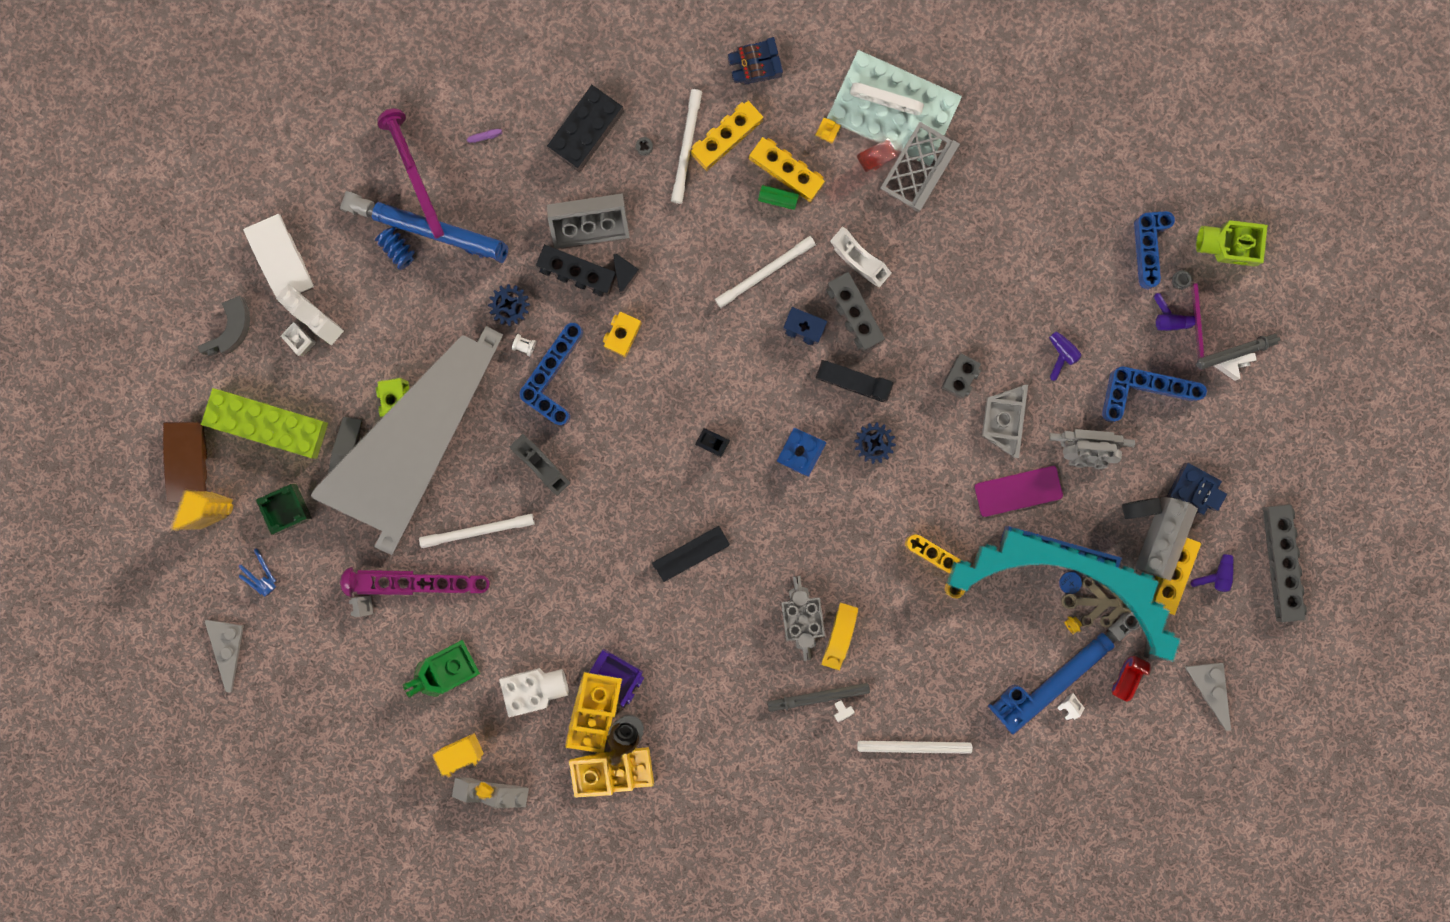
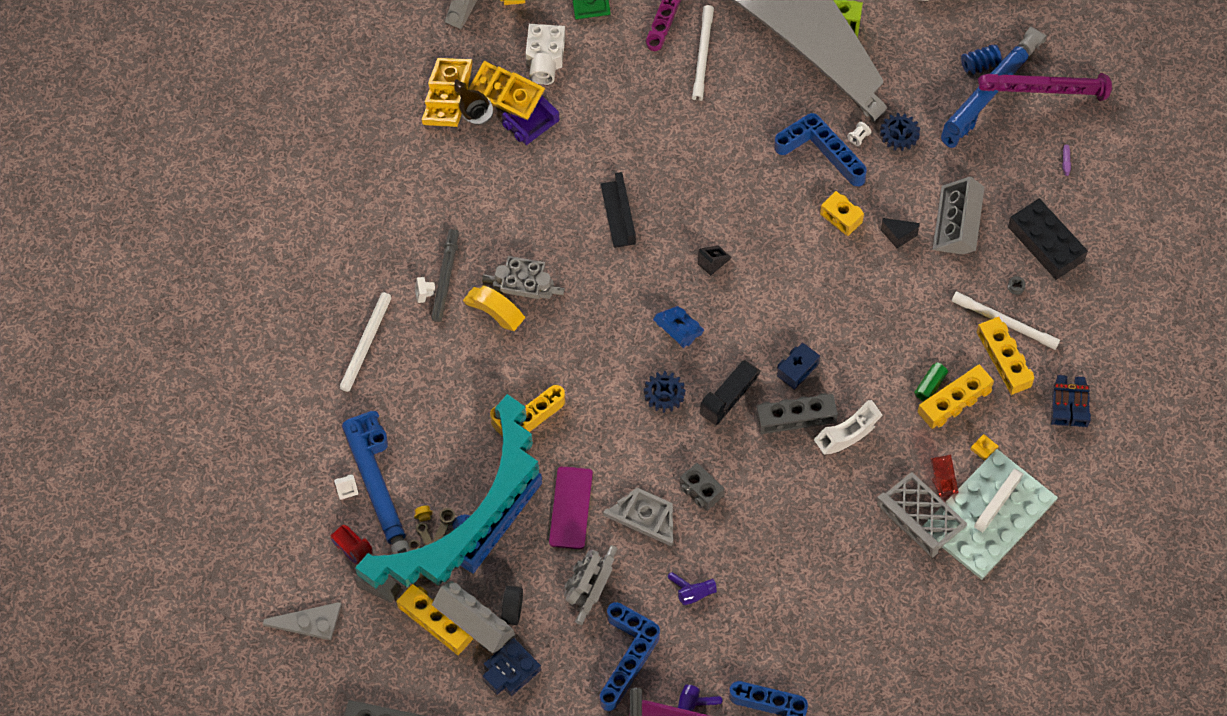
camera: 110 degrees right, 25 degrees down
(540, 464) = (736, 119): dark grey arch -> none
(550, 255) = (935, 177): black brick -> none
(731, 294) = (874, 385): white piece -> none
(1223, 577) = (414, 666): dark purple piece -> none

